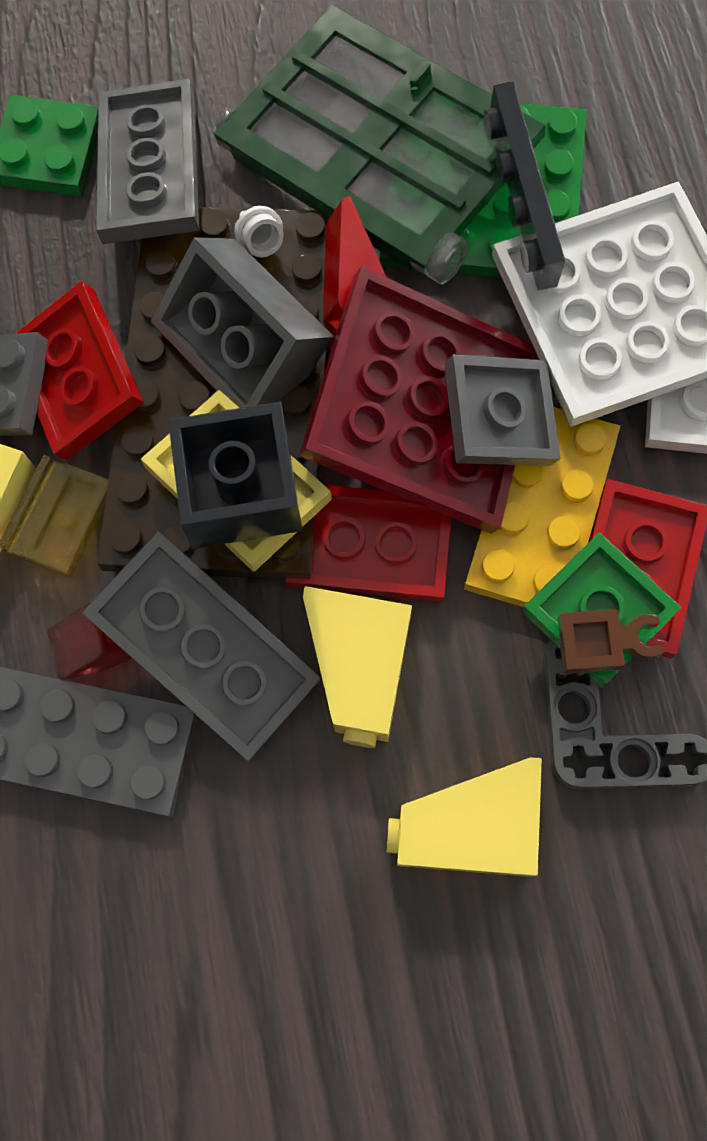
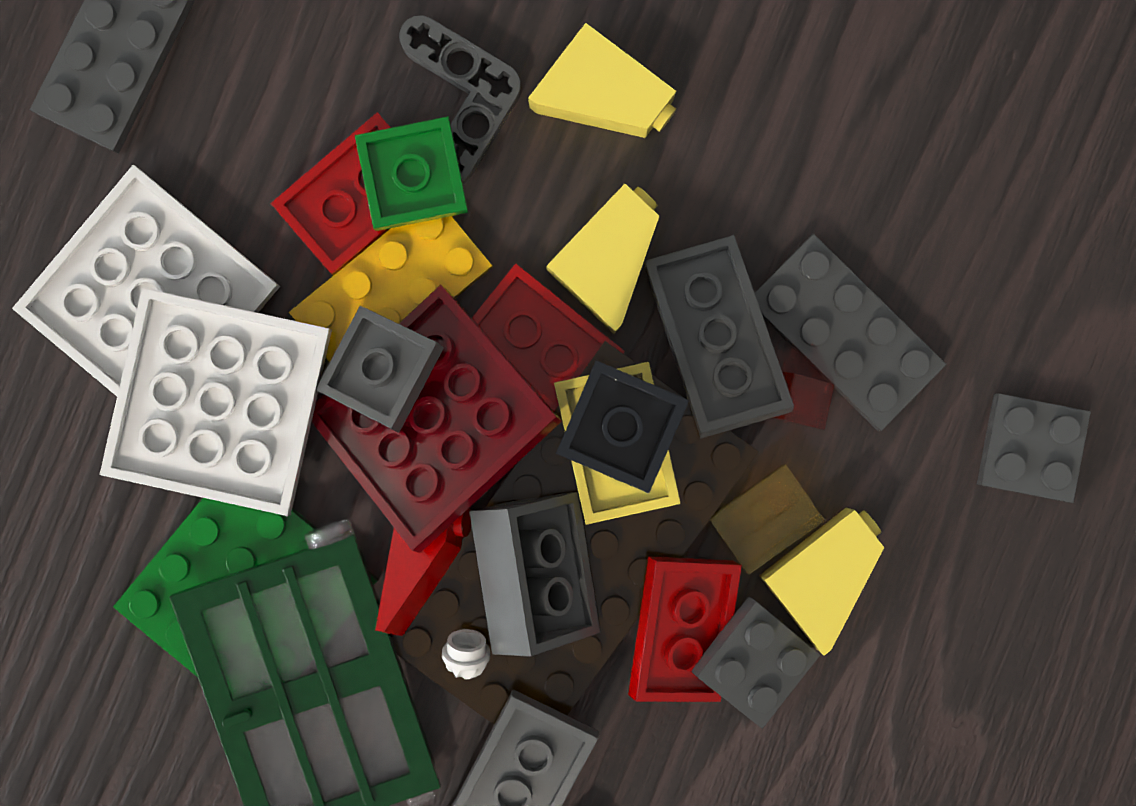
camera: 160 degrees left, 15 degrees up
(528, 201) = (226, 560): black plate -> none
(597, 642) = (435, 145): reddish brown plate -> none

